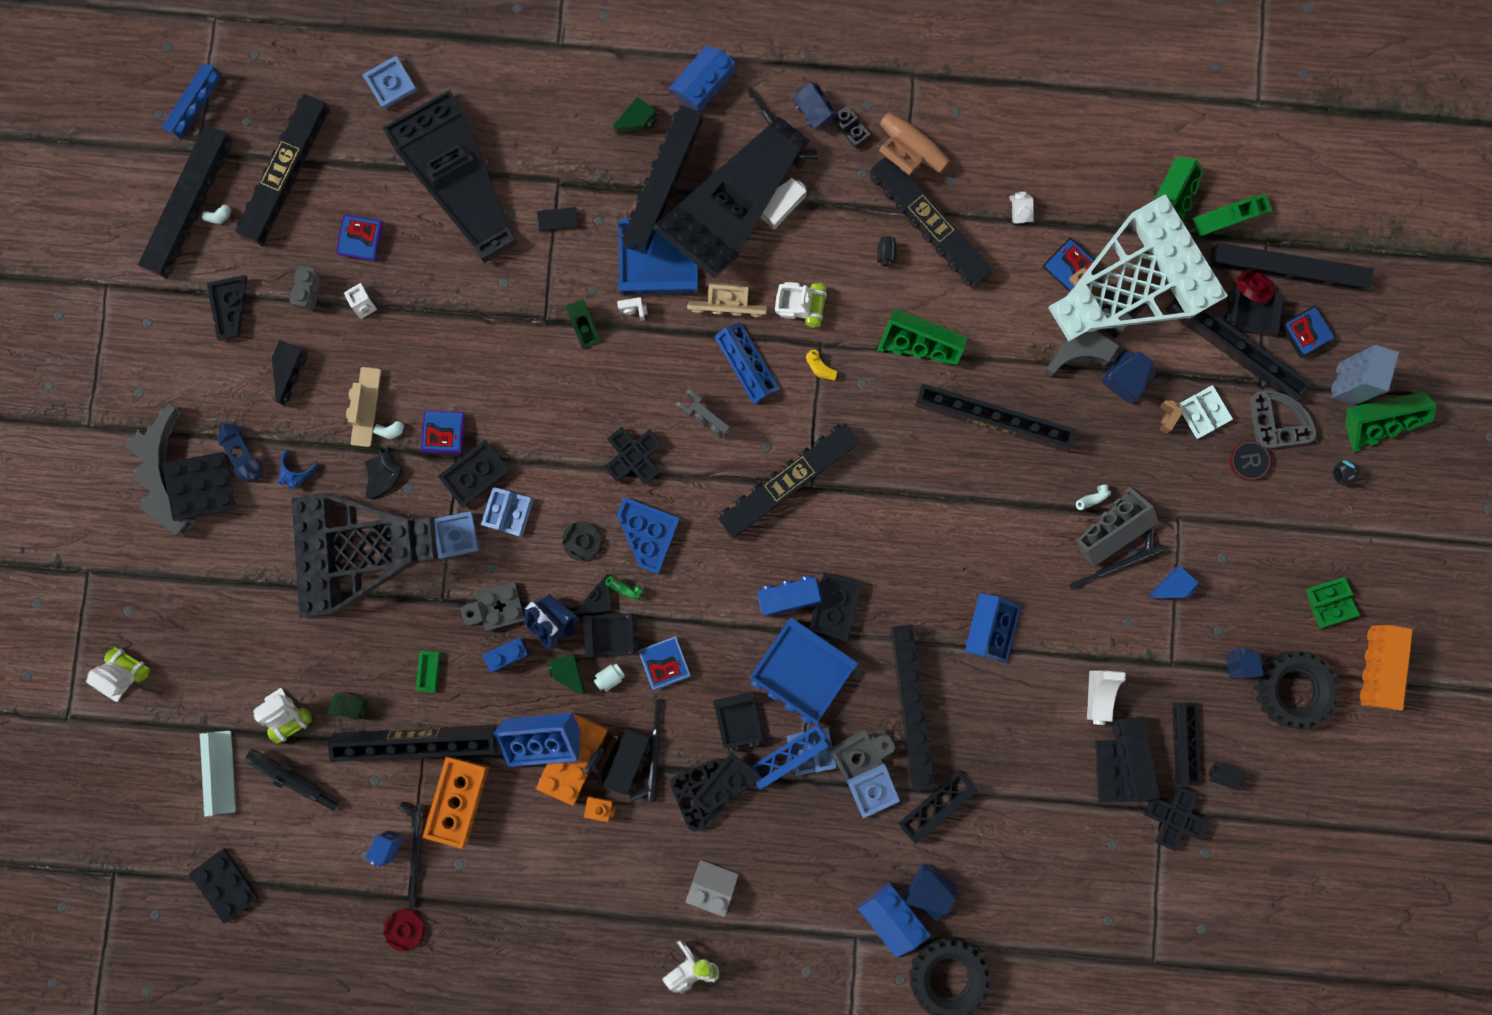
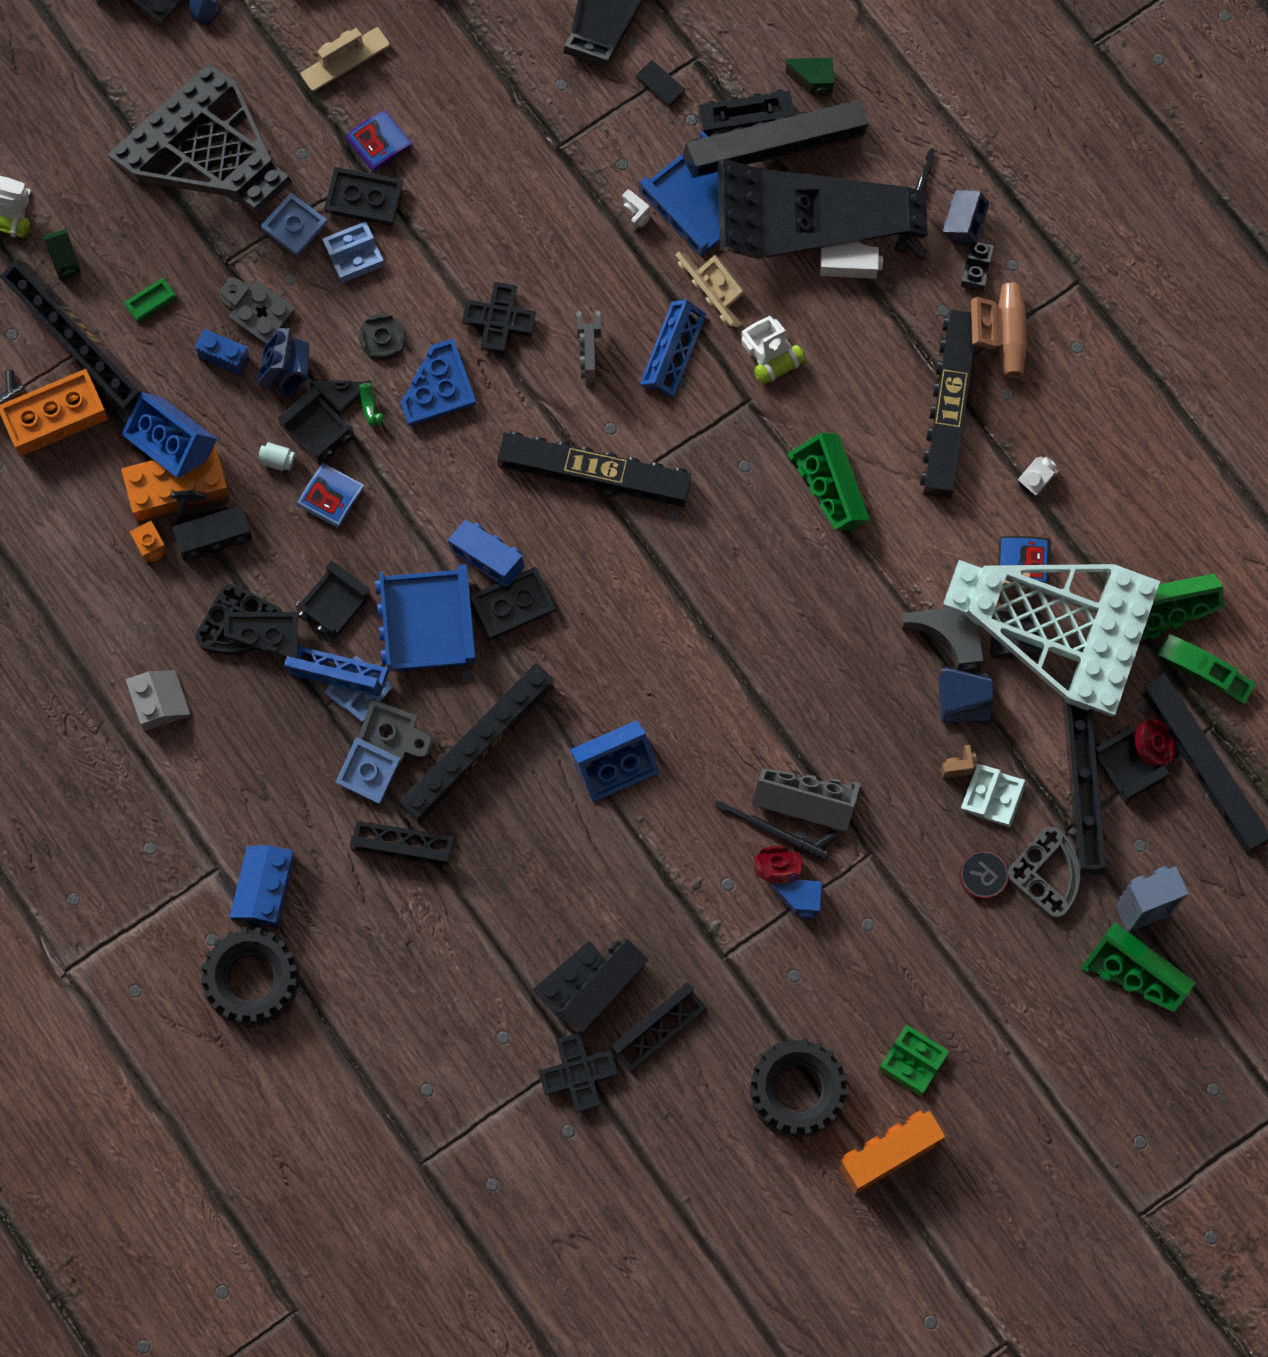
camera: 50 degrees right, 10 degrees down
(293, 479) = (228, 52): blue helmet -> none
(382, 473) = (296, 121): black arm -> none
(390, 432) = (341, 97): light aqua arm -> none
(567, 672) = (251, 416): dark green slope -> none
(582, 323) = (582, 178): dark green slope -> none
(637, 156) = (744, 111): none -> black brick
(651, 781) = (211, 569): black piece -> none
(690, 971) = (64, 735): white piece -> none
(703, 78) = (903, 103): blue slope -> none
(818, 366) = (724, 414): yellow arm -> none
(887, 251) = (887, 387): black brick -> none
(931, 892) = (316, 896): dark blue piece -> none
(995, 417) = (814, 603): black brick -> none
(1092, 499) = (818, 757): light aqua arm -> none
(1102, 694) = (637, 906): white arch -> none
(1146, 583) = (778, 865): none -> dark red tile
(1226, 775) = (657, 1086): black brick -> none
(1244, 663) = (778, 1013): dark blue brick -> none
(1308, 331) = (1158, 830): slope -> none
(1346, 472) = (1050, 971): black piece -> none

